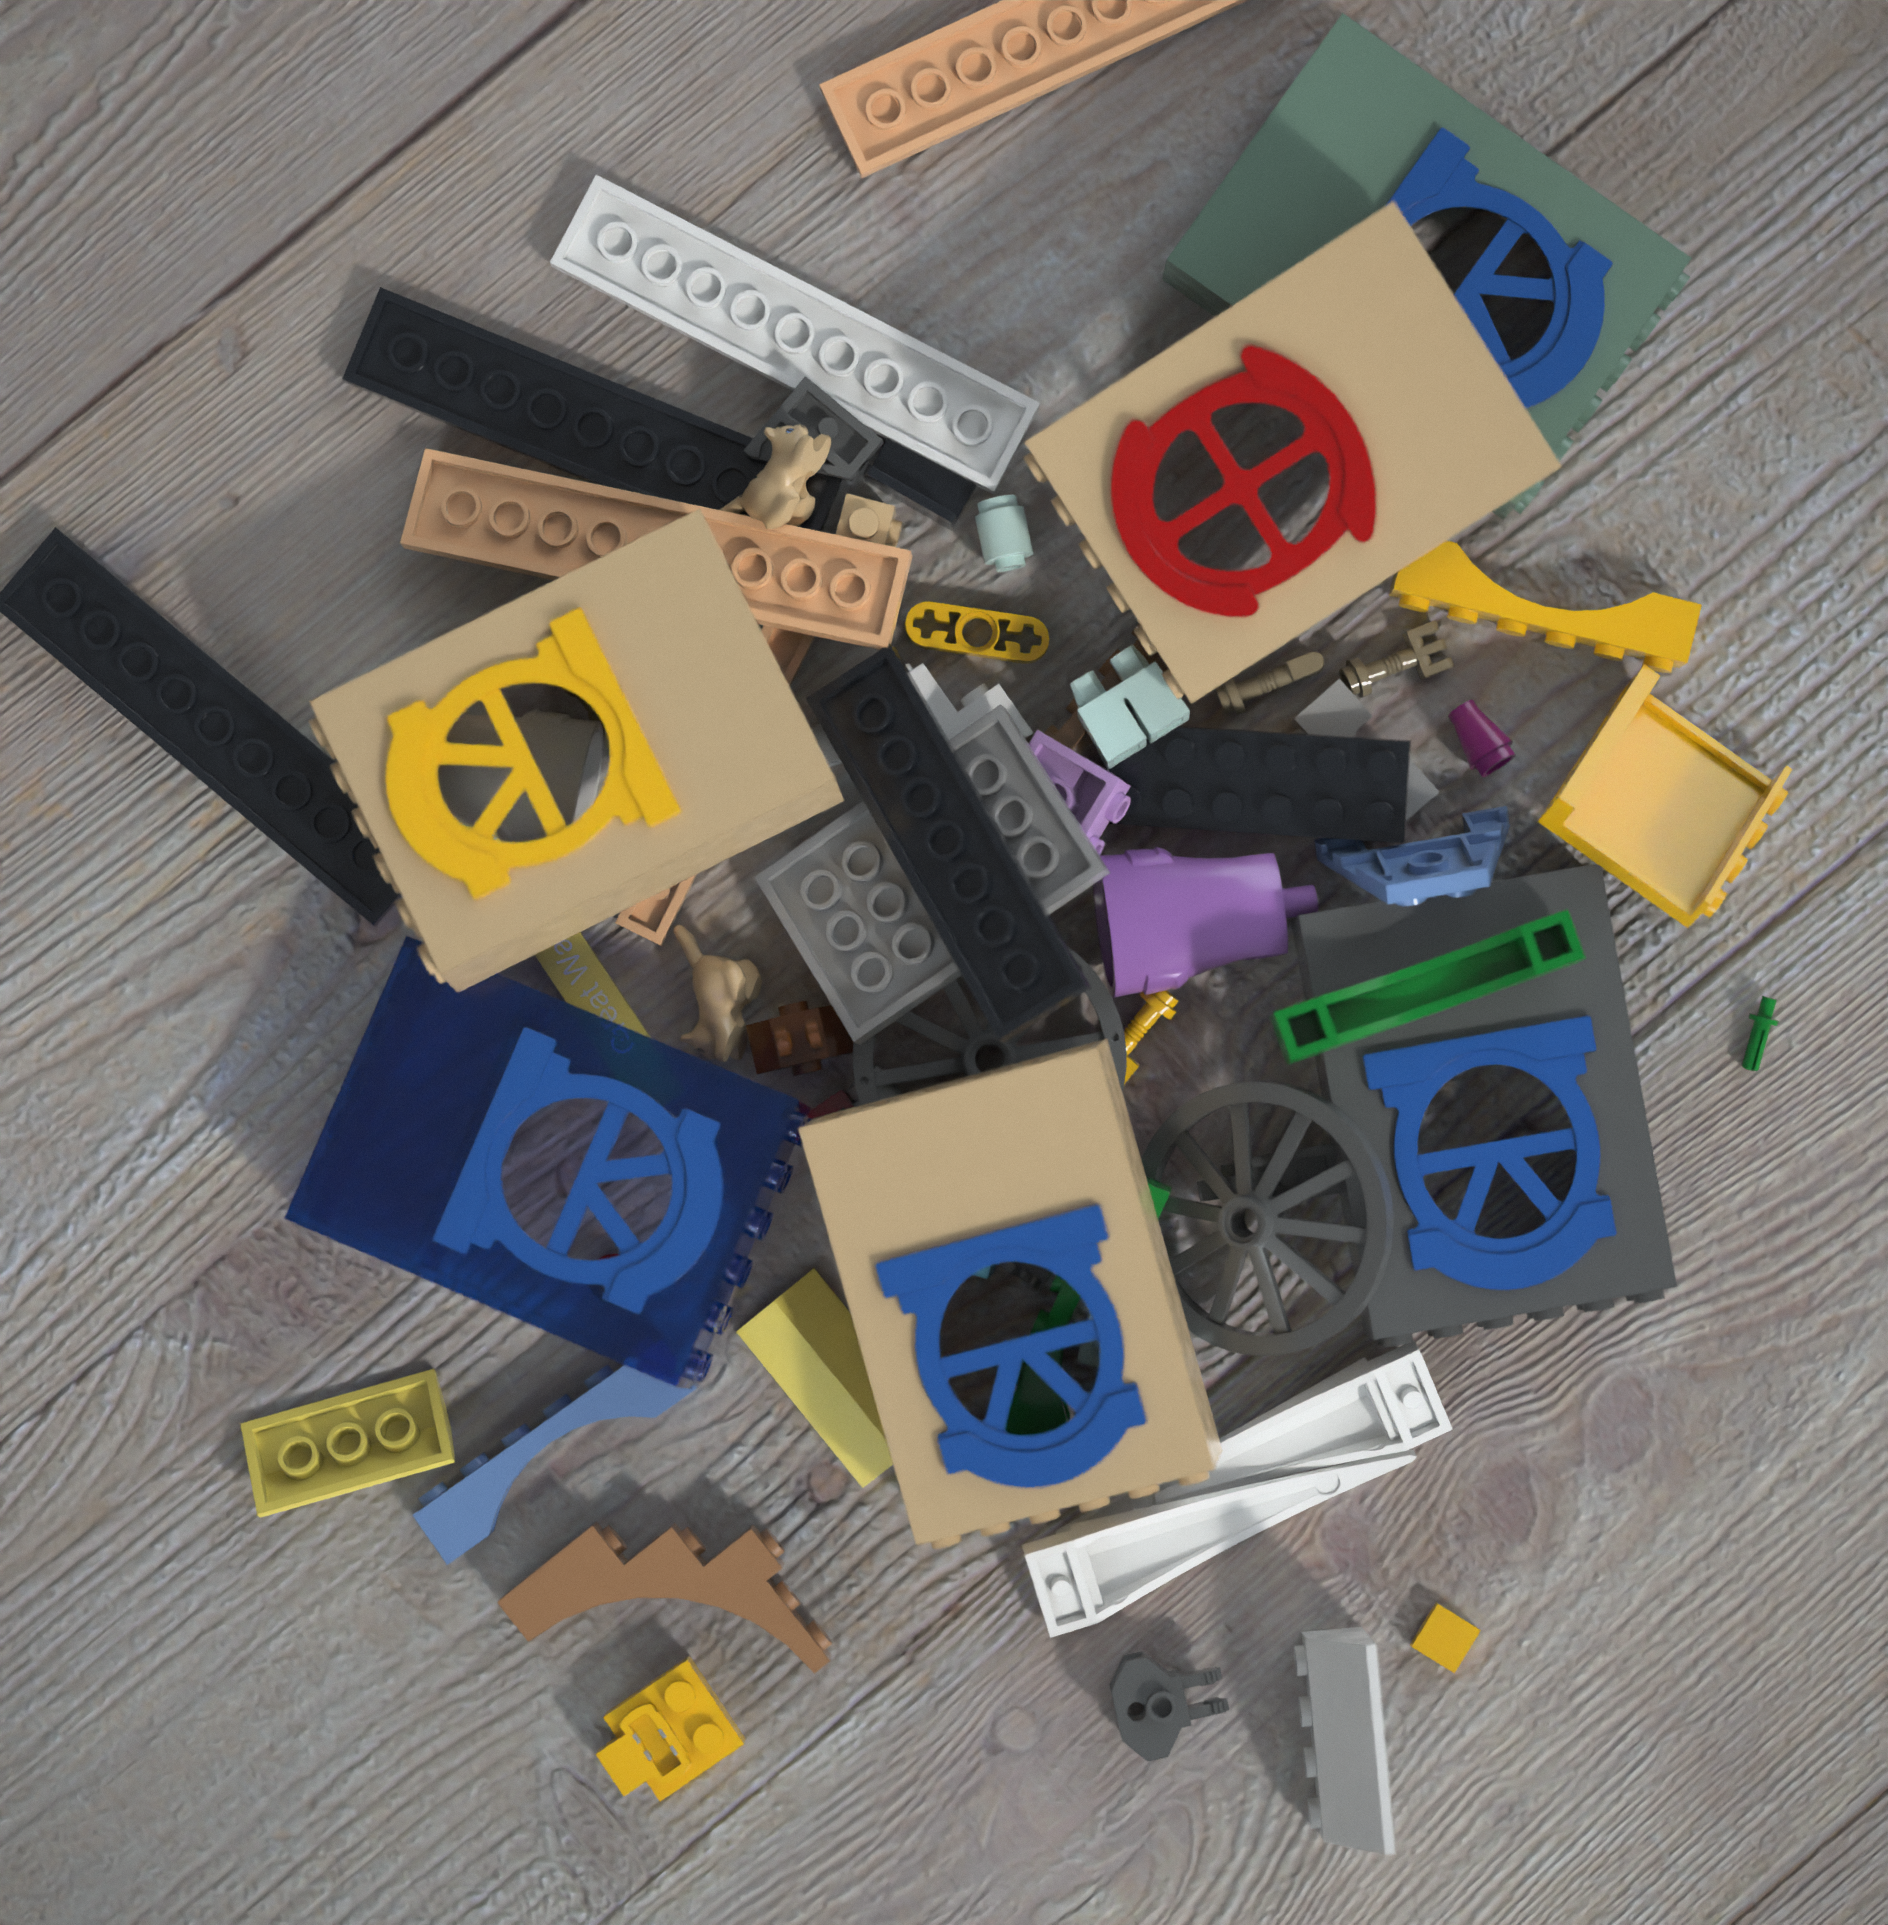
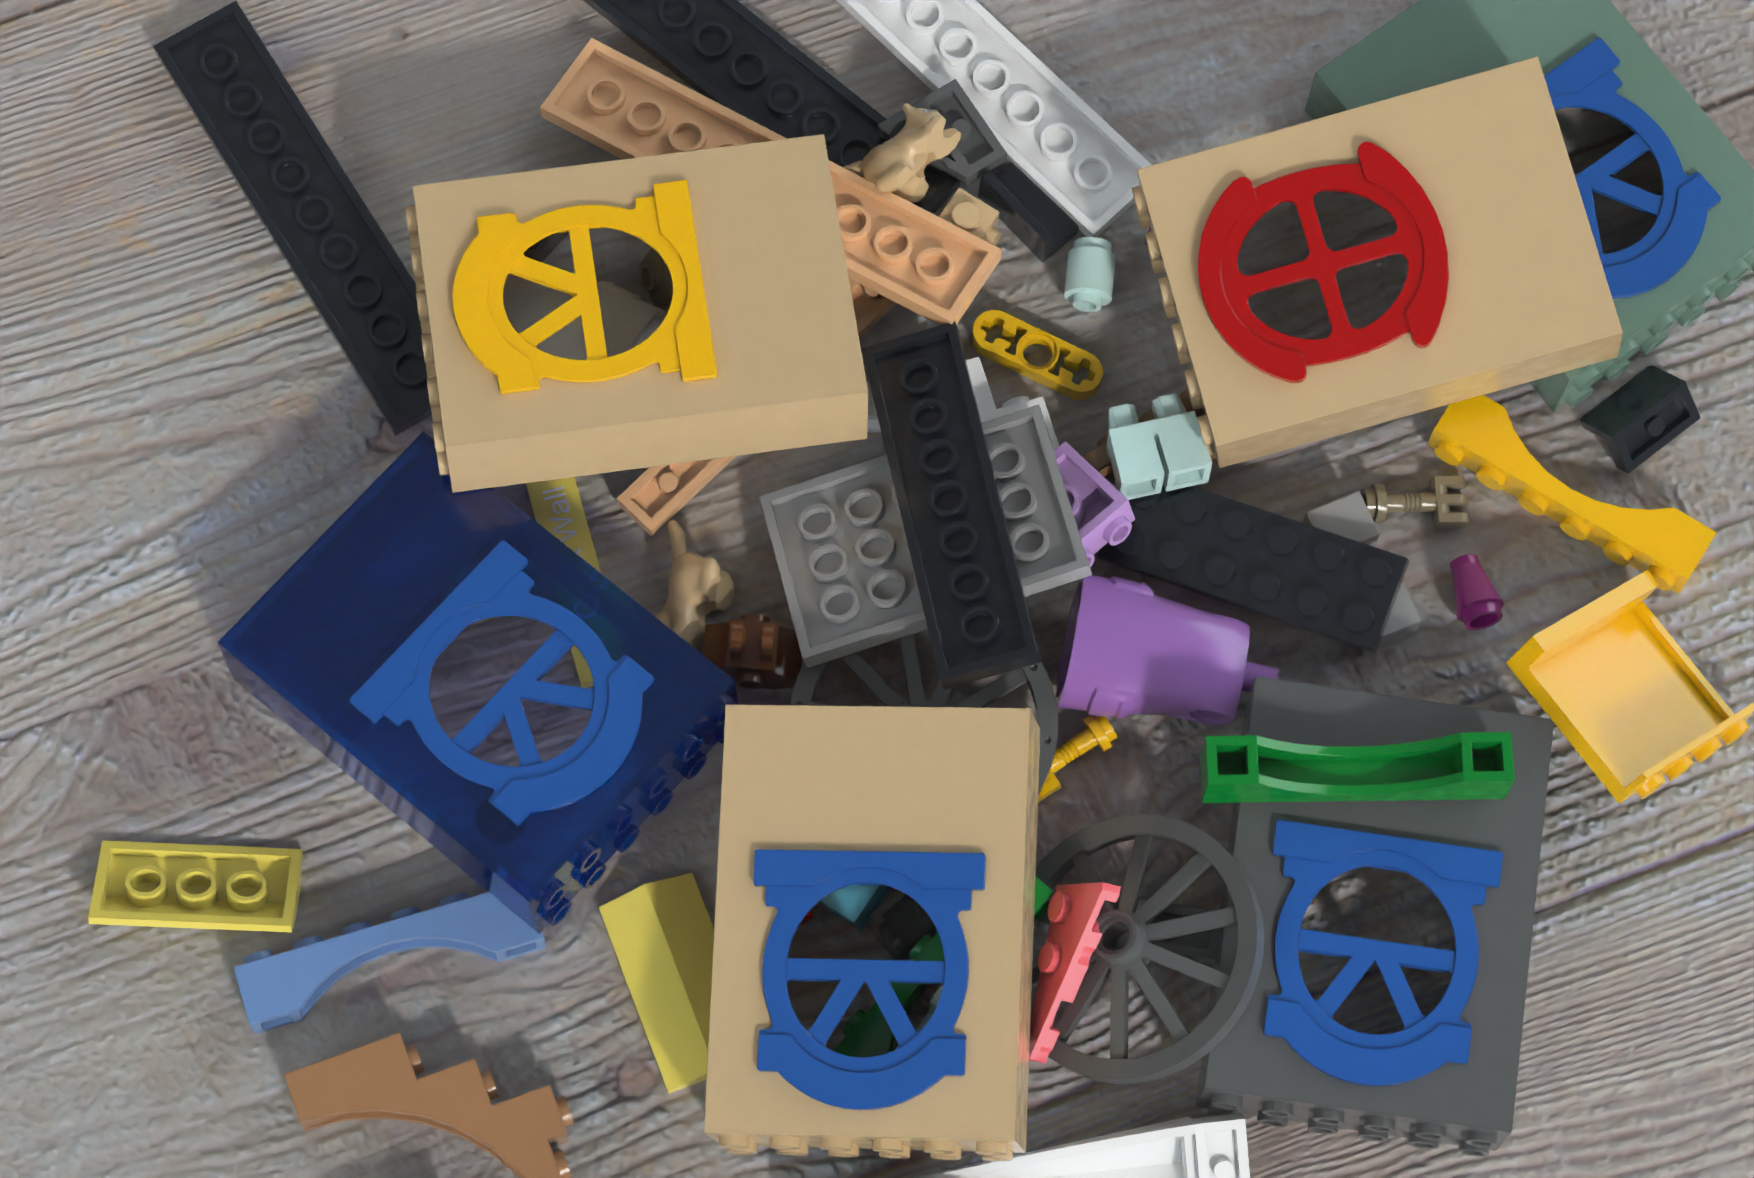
camera: 10 degrees right, 15 degrees down
(1201, 1251) = (1065, 956): none -> coral wing
(1295, 670) = (1325, 477): dark tan hinge -> none
(1423, 868) = (1371, 672): medium blue wing -> none
(1591, 499) = (1642, 416): none -> black panel
(1759, 1033) = (1665, 935): green piece -> none

